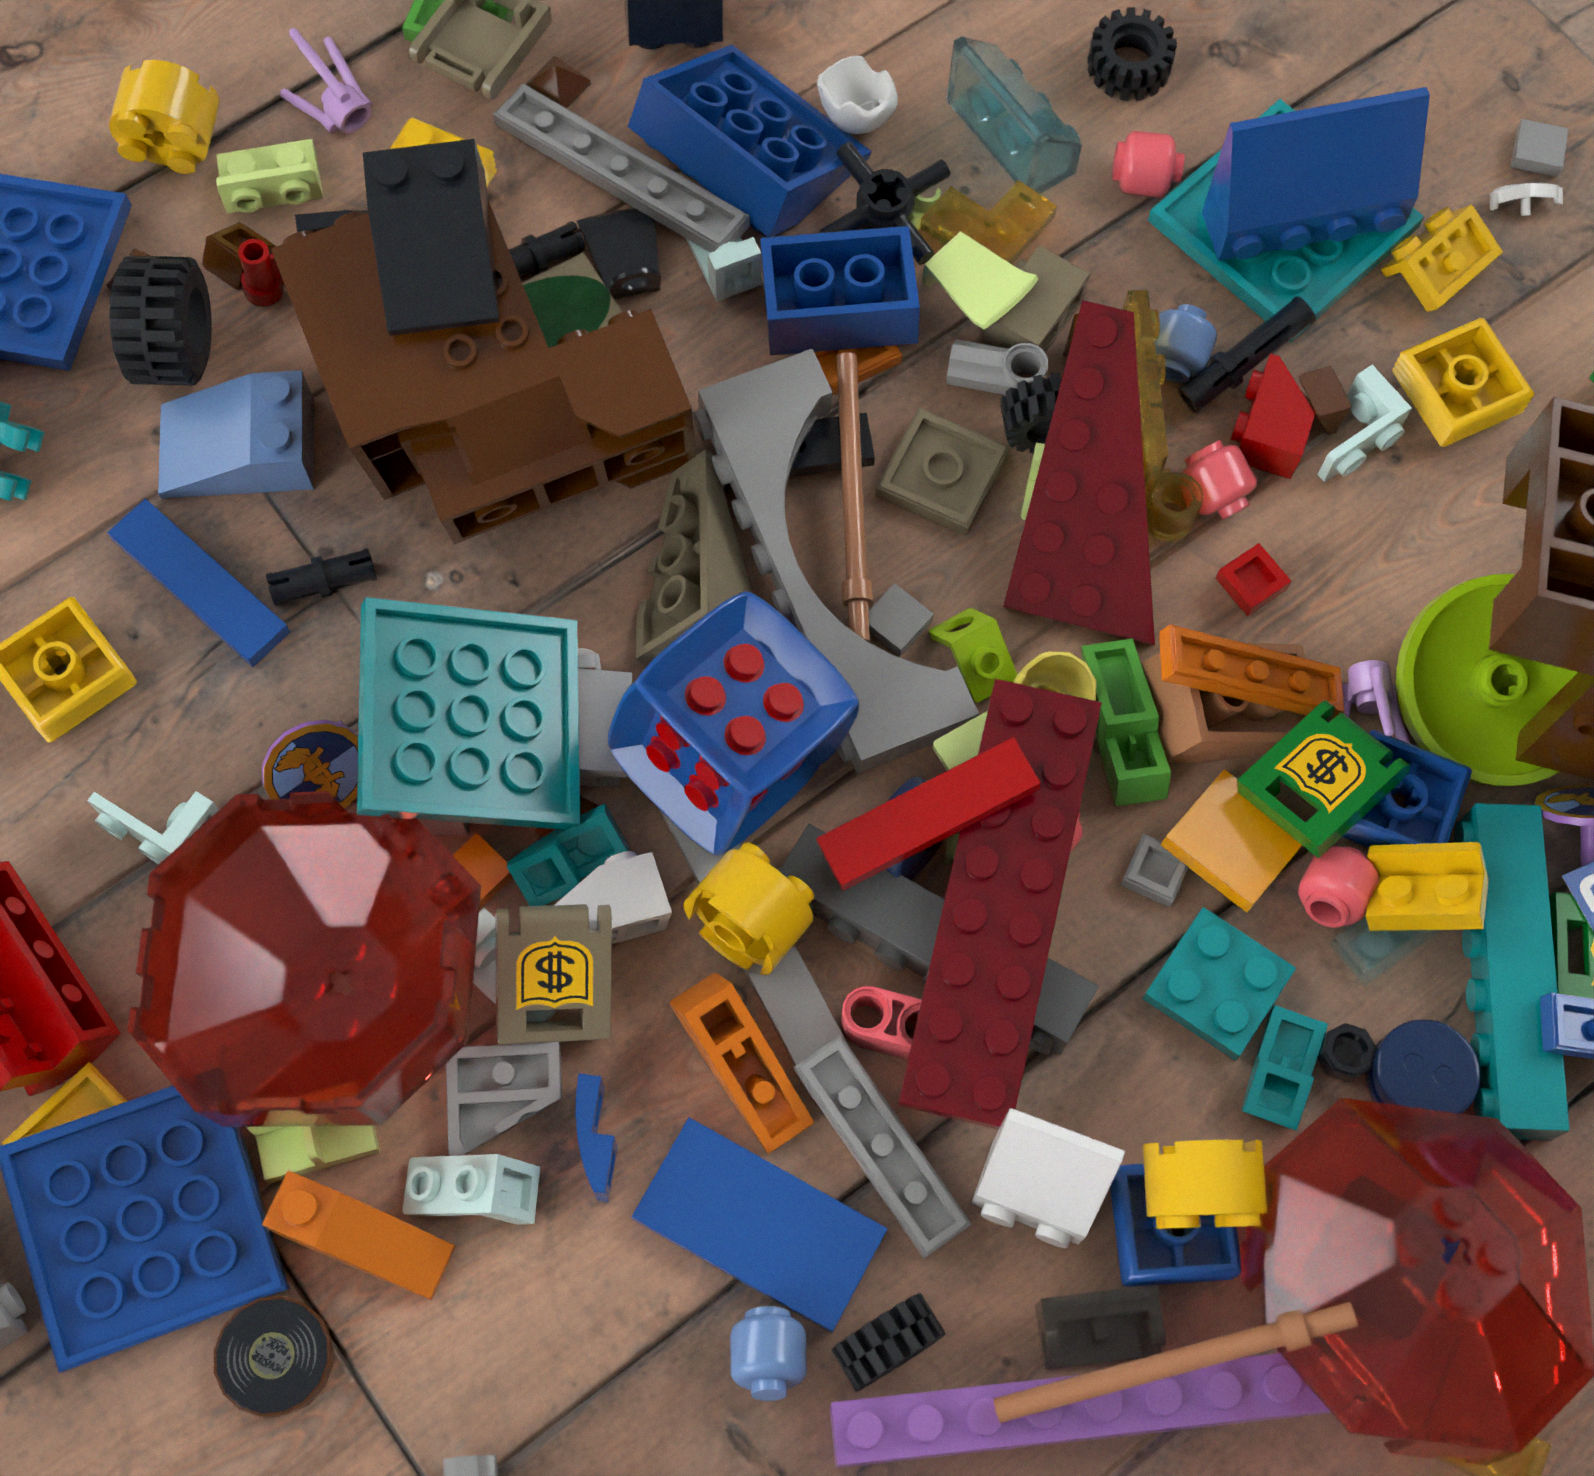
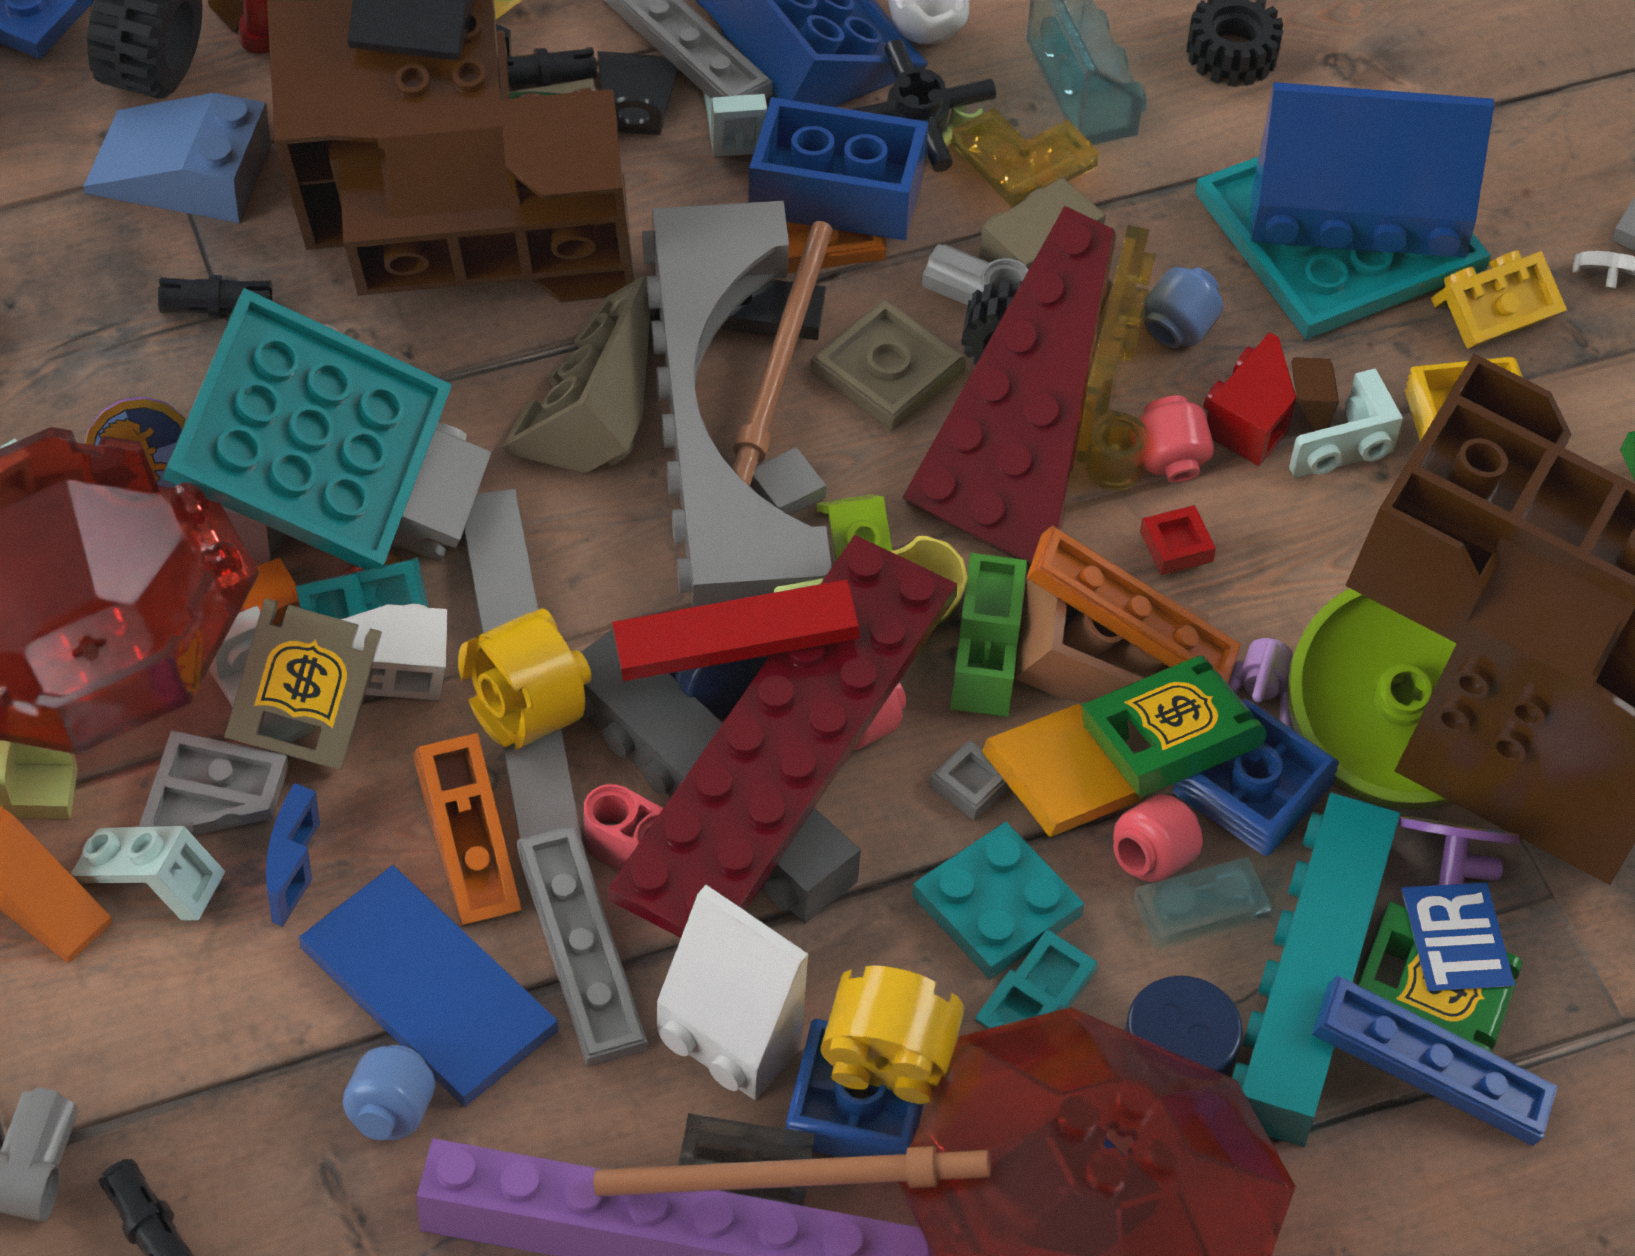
camera: 15 degrees right, 15 degrees down
(199, 582) = (92, 272): blue tile -> none
(731, 722) = (568, 499): blue piece -> none
(888, 1341) = (515, 1107): black tyre -> none
(977, 279) = (982, 189): yellowish green piece -> none
(1147, 164) = (1211, 138): coral head -> none
(1230, 367) = (1187, 355): black pin -> none
(1347, 1052) = (1108, 994): black tile -> none
(1428, 887) = (1247, 849): yellow bracket -> none

